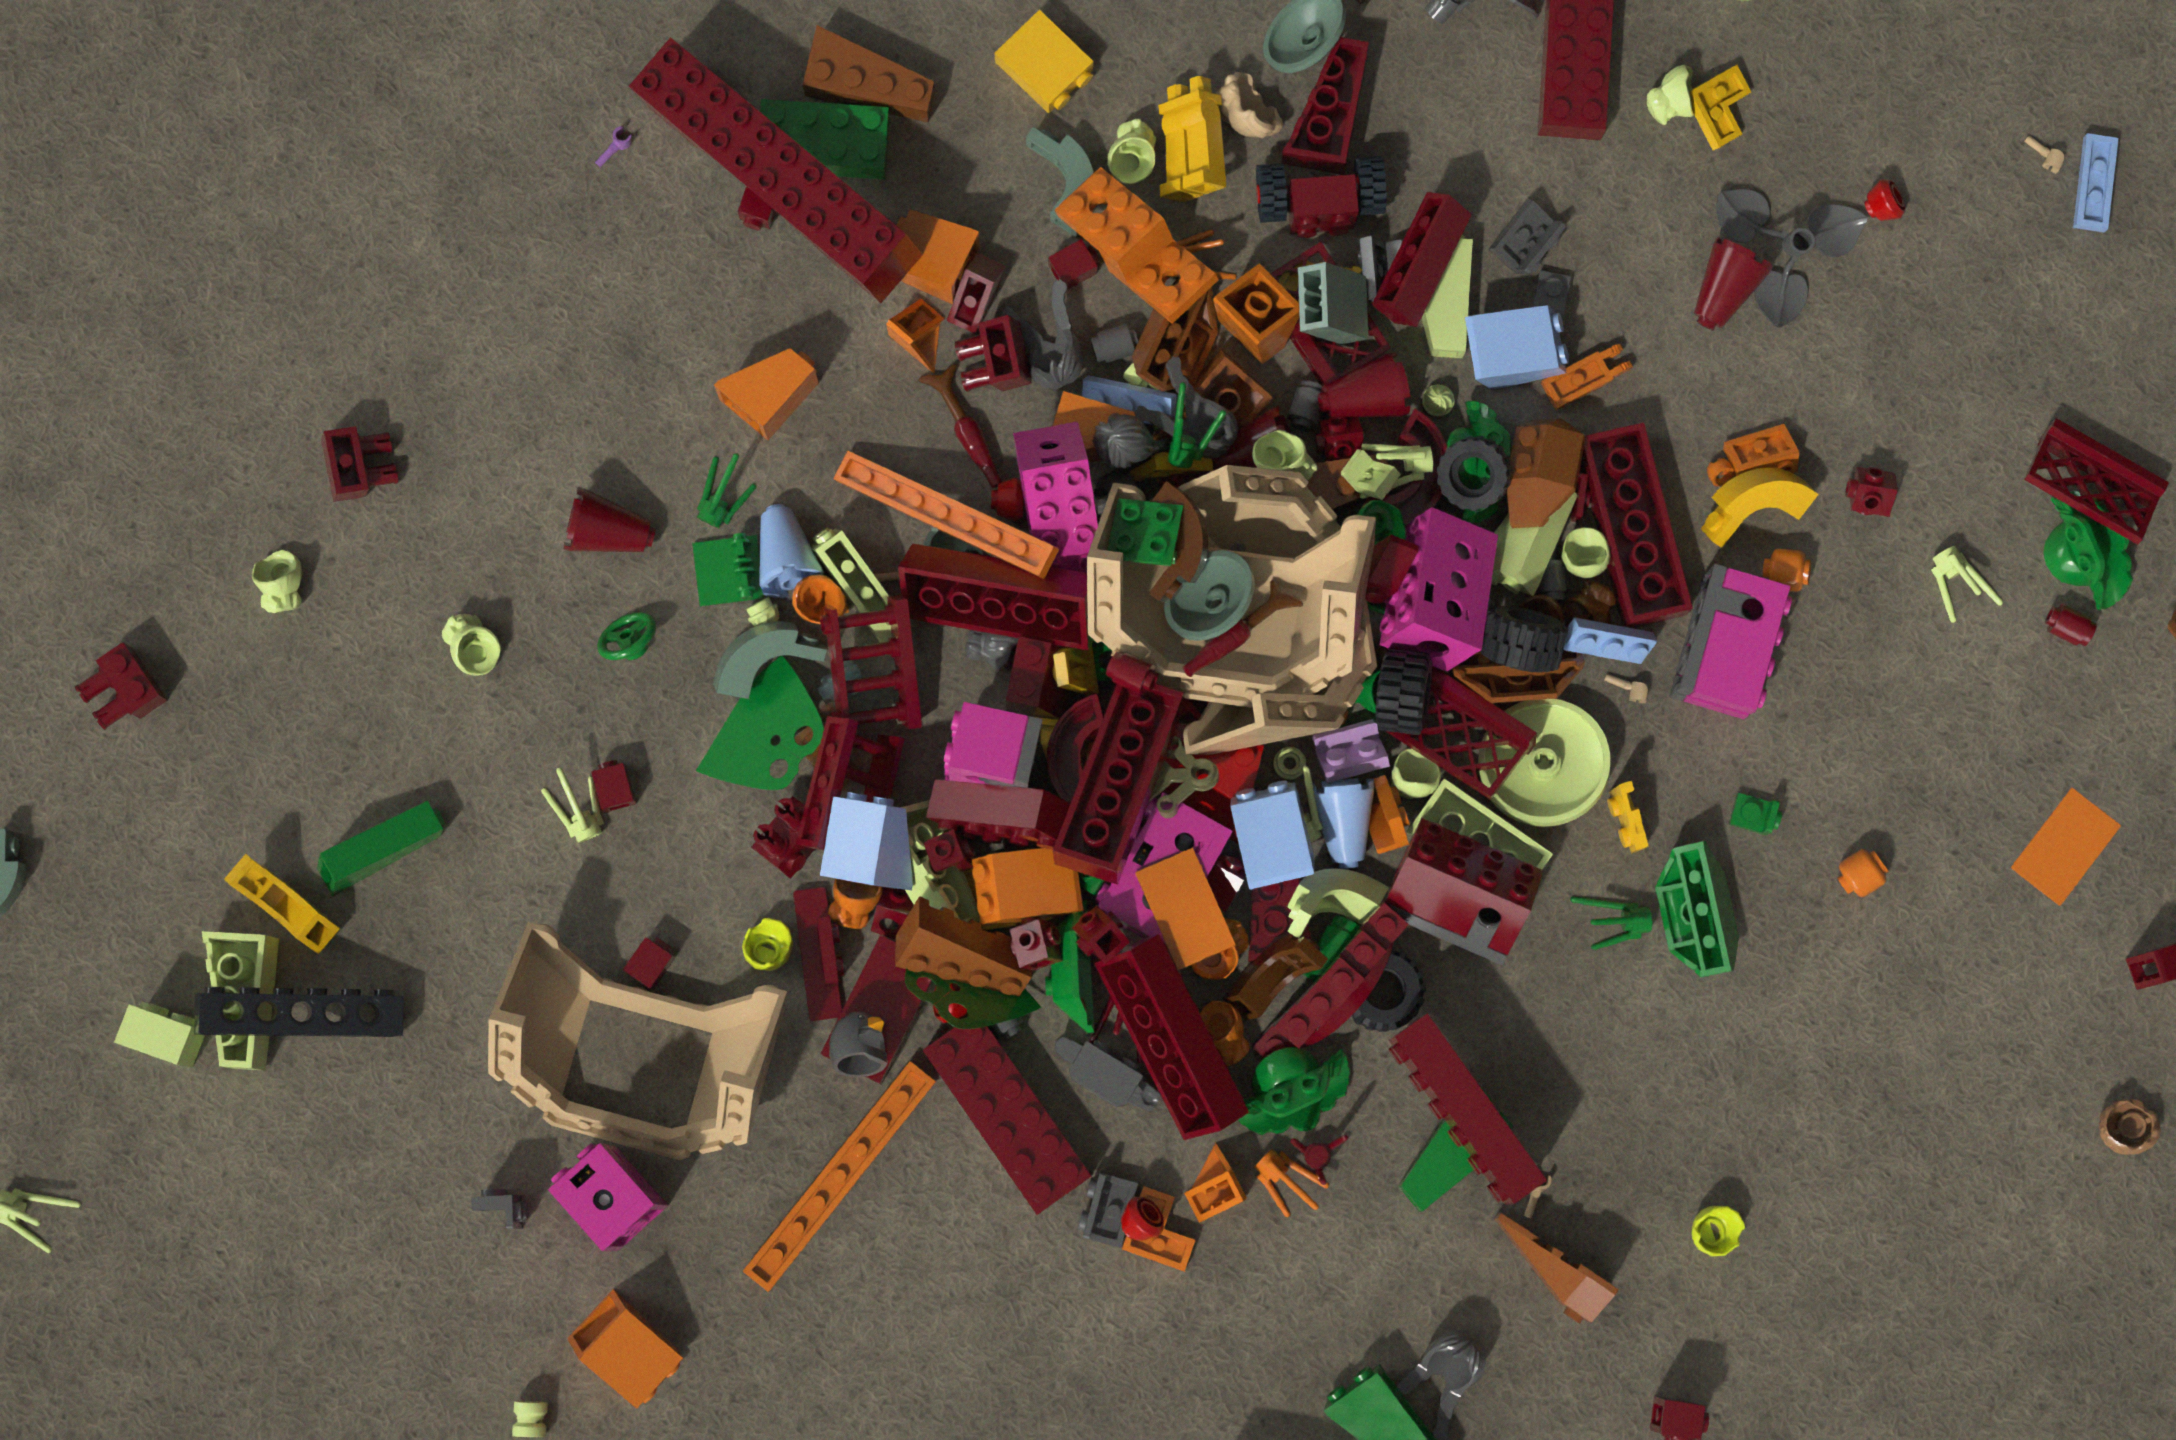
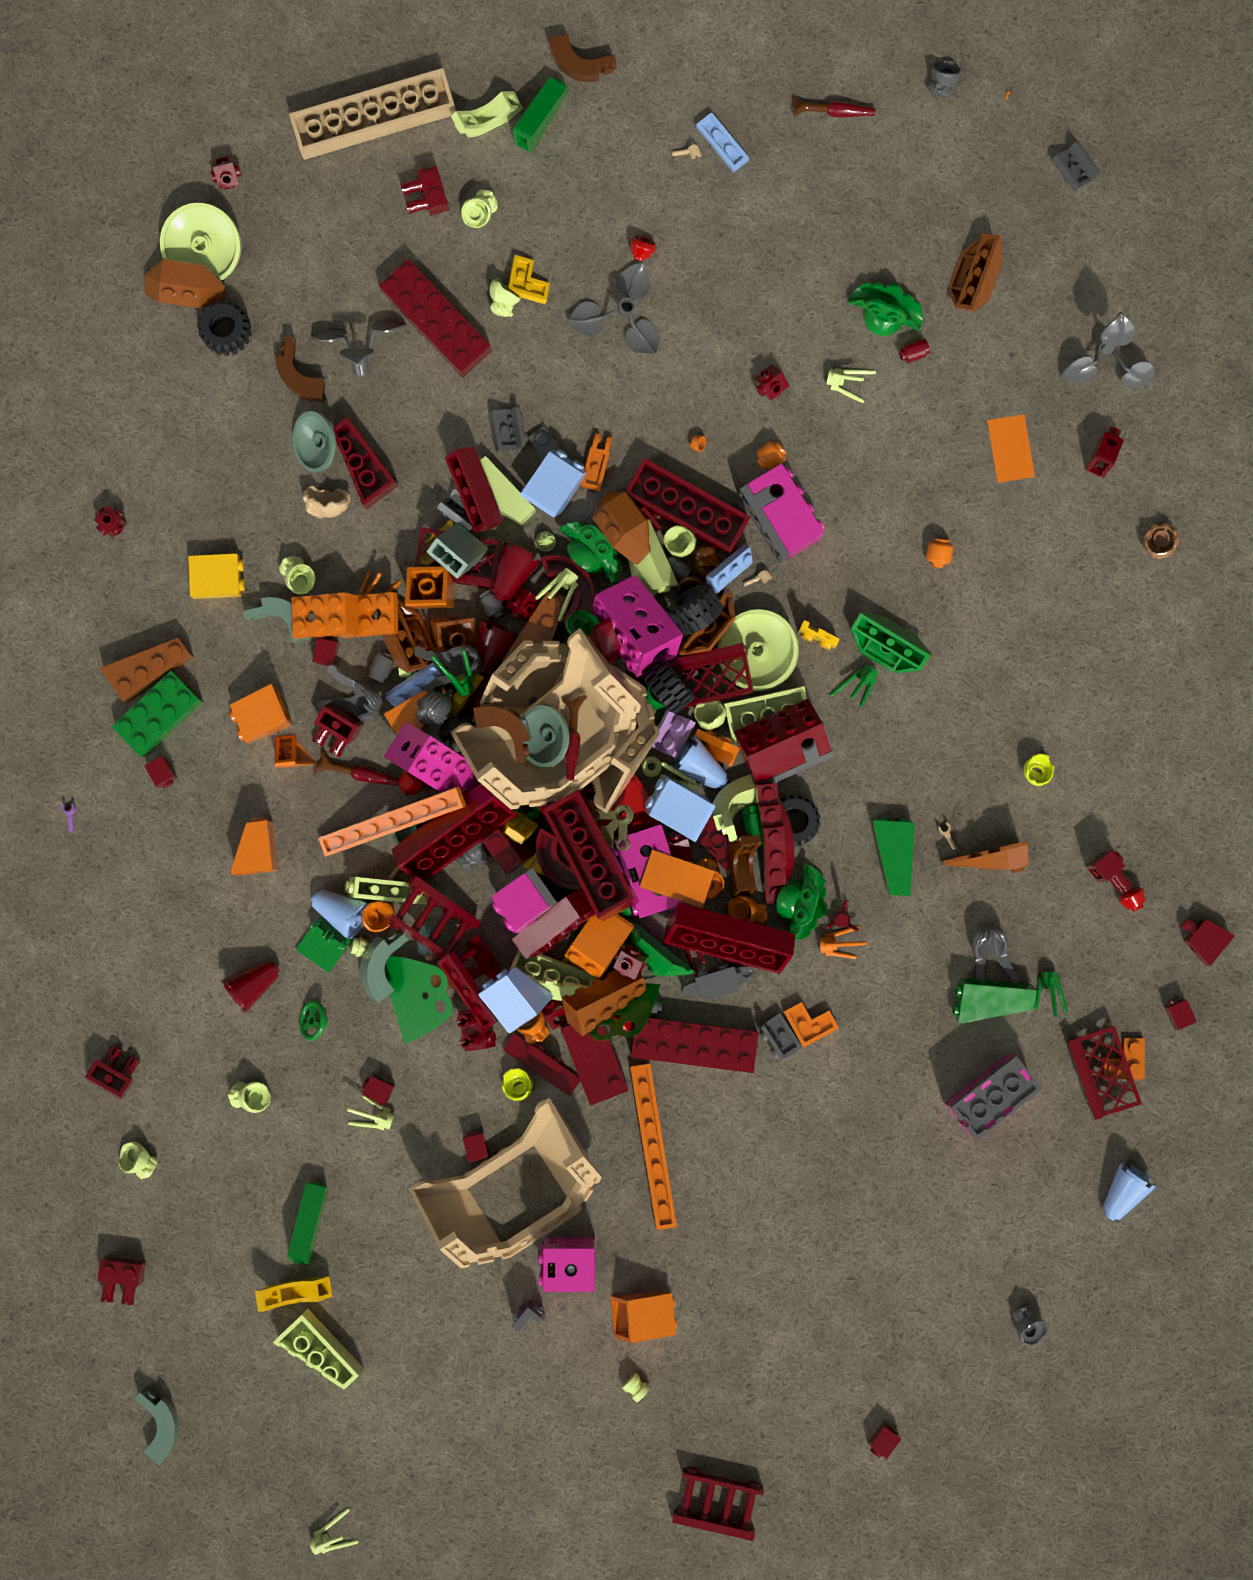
camera: 45 degrees left, 5 degrees up
(158, 1035) = (304, 1404): yellowish green brick -> none
(211, 1020) = (393, 1293): black brick -> none
(712, 509) = (287, 926): green plant -> none
(776, 170) = (153, 752): dark red arch -> none
(858, 1045) = (603, 1086): dark grey piece -> none
(950, 850) = (551, 962): dark red bracket -> none
(976, 292) = (297, 709): dark red slope -> none
(1100, 934) = (654, 929): dark red brick -> none
(1132, 672) = (547, 805): dark red brick -> none
(1142, 1219) = (799, 1026): red cone -> none
(1146, 531) = (488, 740): green hinge -> none
(1192, 141) = (318, 542): yellow hips -> none
(1215, 1187) = (813, 979): orange slope -> none
(1283, 452) = (507, 639): yellowish green hair -> none
(1321, 202) = (403, 509): brick -> none
(1369, 476) = (554, 608): yellowish green bracket -> none
(1466, 1110) = (884, 834): dark red brick -> none
(1499, 473) = (592, 544): black tyre -> none
(1728, 282) = (614, 356): dark red cone -> none
(1753, 492) = (722, 438): yellow arch -> none
(1755, 814) = (868, 575): green bracket -> none
(1763, 450) = (708, 416): orange bracket -> none
(2103, 467) = (856, 266): dark red fence -> none

